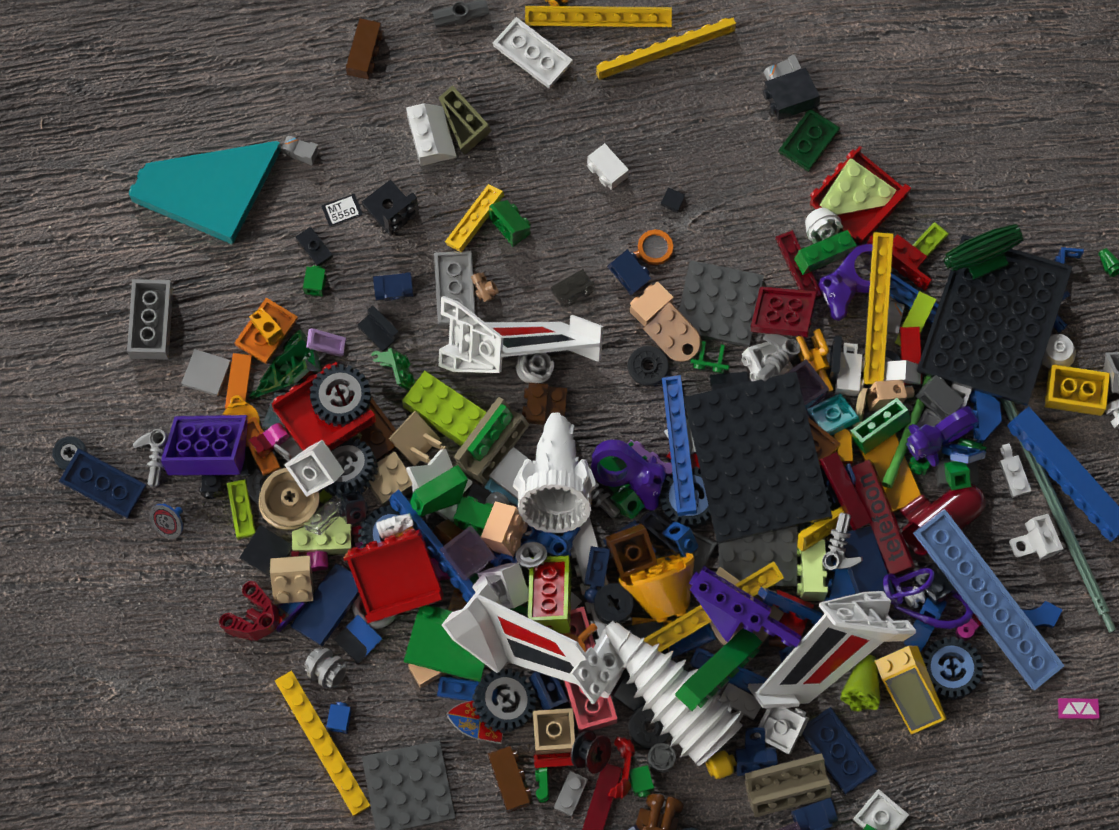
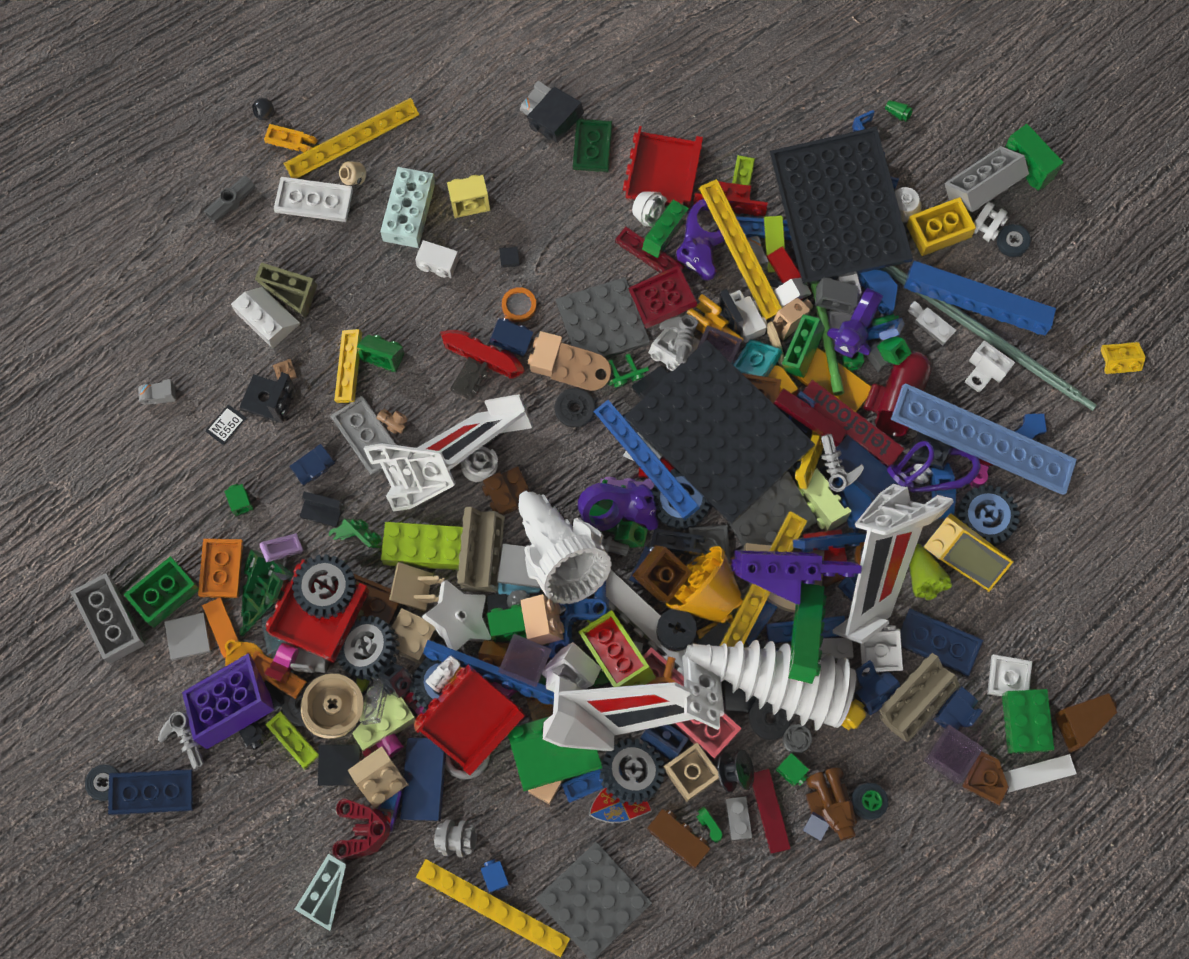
camera: 30 degrees left, 0 degrees up
(166, 520) = (230, 791): shield -> none
(193, 646) = (323, 892): none -> light aqua wedge
(206, 322) = (161, 592): none -> green brick
(207, 189) = (92, 474): teal slope -> none
(266, 326) = (219, 563): light orange leg -> none
(314, 246) = (220, 470): black plate -> none
(314, 468) = (341, 665): white slope -> none
(358, 639) = (468, 794): sticker -> none
(364, 48) = (163, 275): reddish brown brick -> none
(420, 190) = (285, 367): none -> medium nougat tile
(439, 492) = (466, 620): green slope -> none
(490, 432) = (476, 542): green plate -> none
(536, 550) = (579, 621): light grey gear -> none
(552, 760) = (706, 798): red tile -> none
(579, 48) = (352, 173): none -> tan head
(596, 571) = (643, 610): dark blue plate -> none
(608, 289) = (500, 362): none -> red brick
(609, 94) = (408, 207): none -> light aqua brick
(627, 750) = (764, 751): red piece -> none
(665, 48) = (430, 128): yellow plate -> none
(668, 125) = (468, 196): none -> light yellow brick
(684, 538) = (700, 537): blue bracket -> none
(856, 190) = (659, 163): yellowish green plate -> none
(984, 252) = (800, 153): dark green plate -> none
(1078, 708) = (1108, 488): dark pink tile -> none

